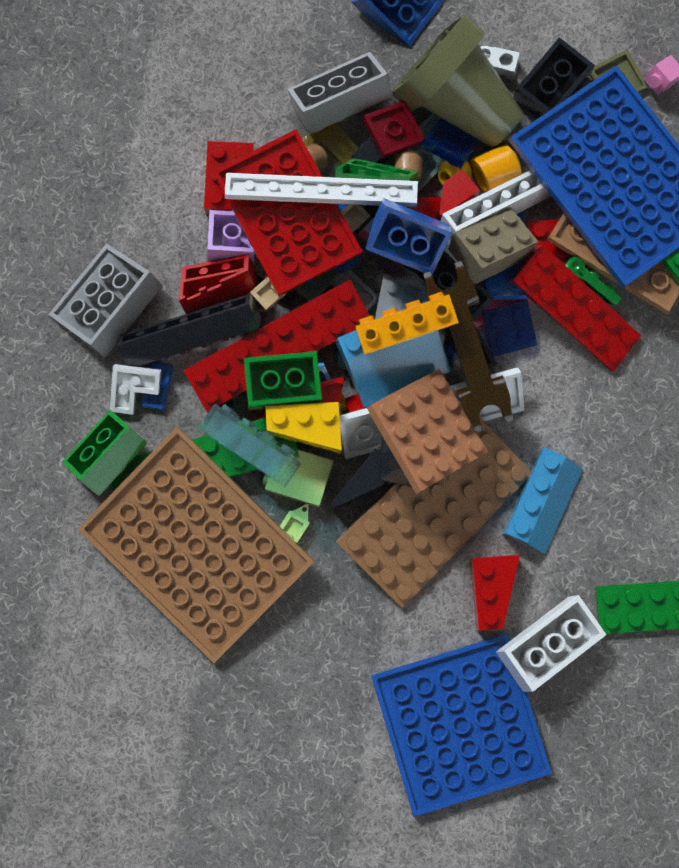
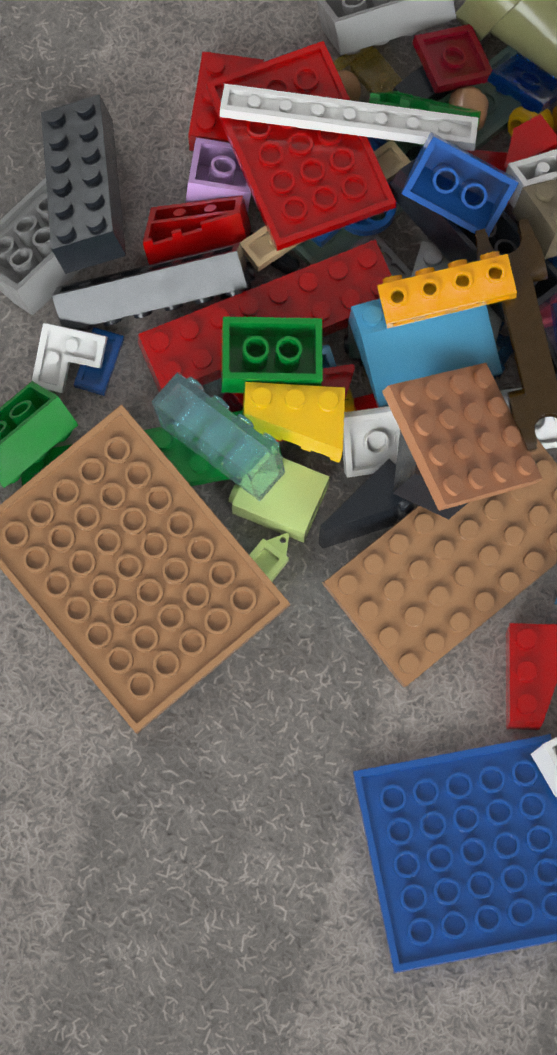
camera: 10 degrees right, 10 degrees down
(129, 258) = (82, 184): none -> black brick

